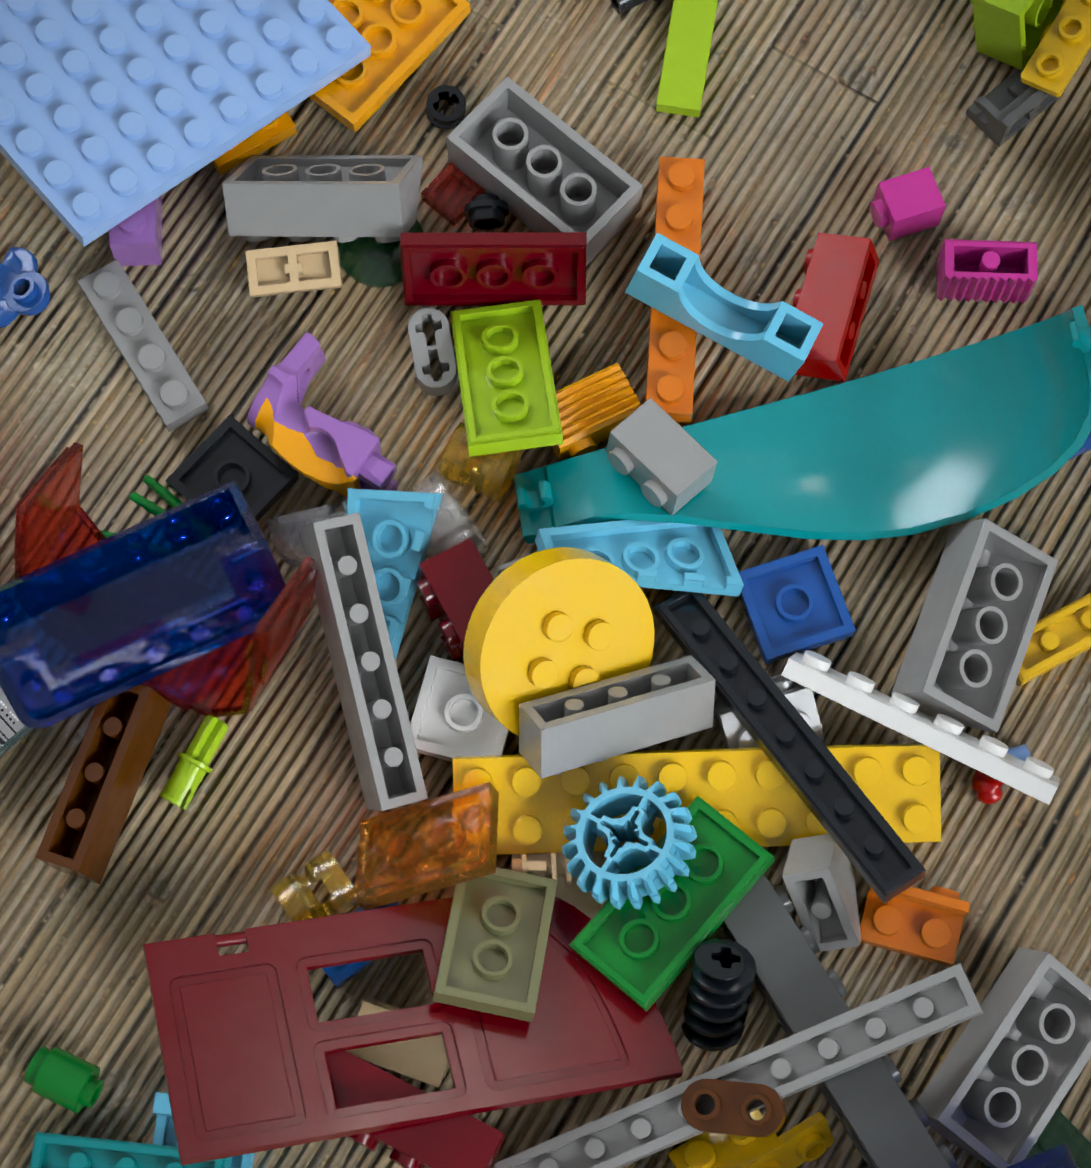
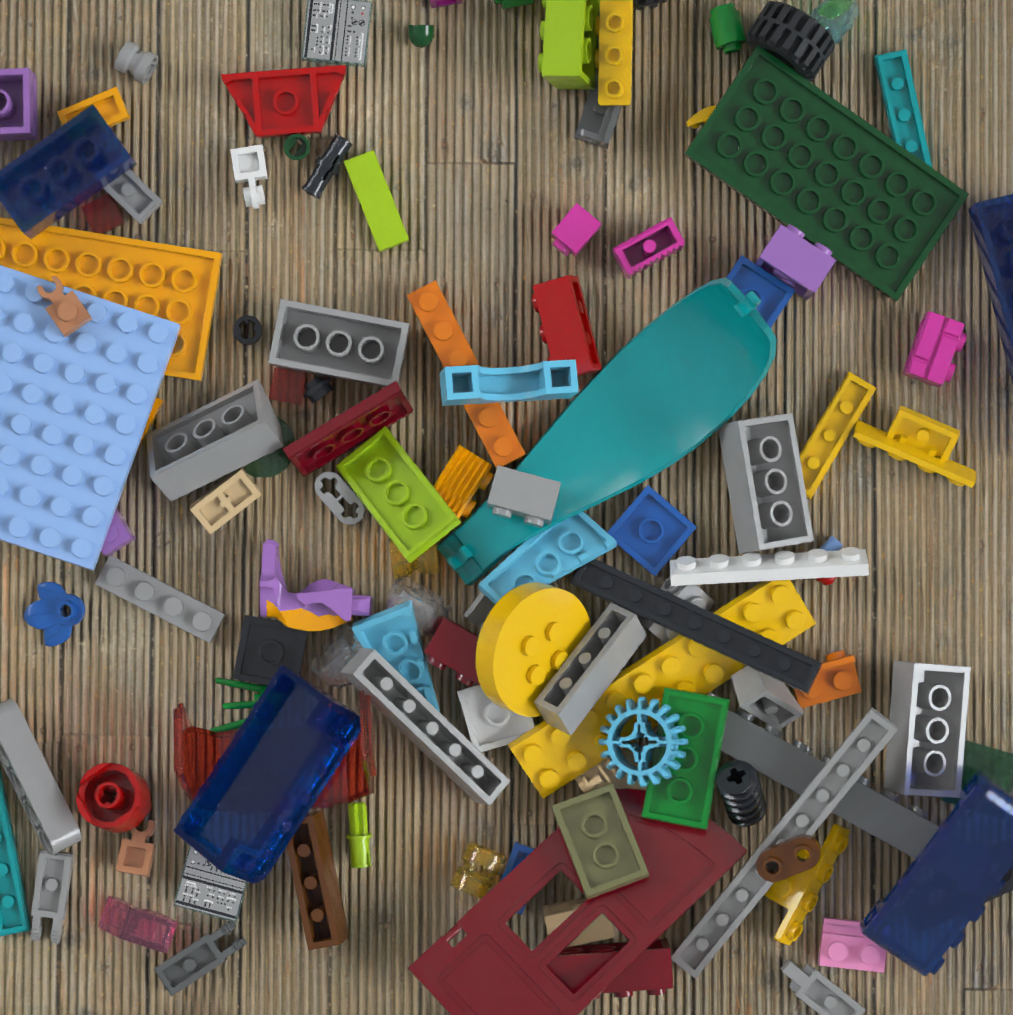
camera: 25 degrees left, 15 degrees up
(427, 846) = (528, 809): clear orange plate -> none

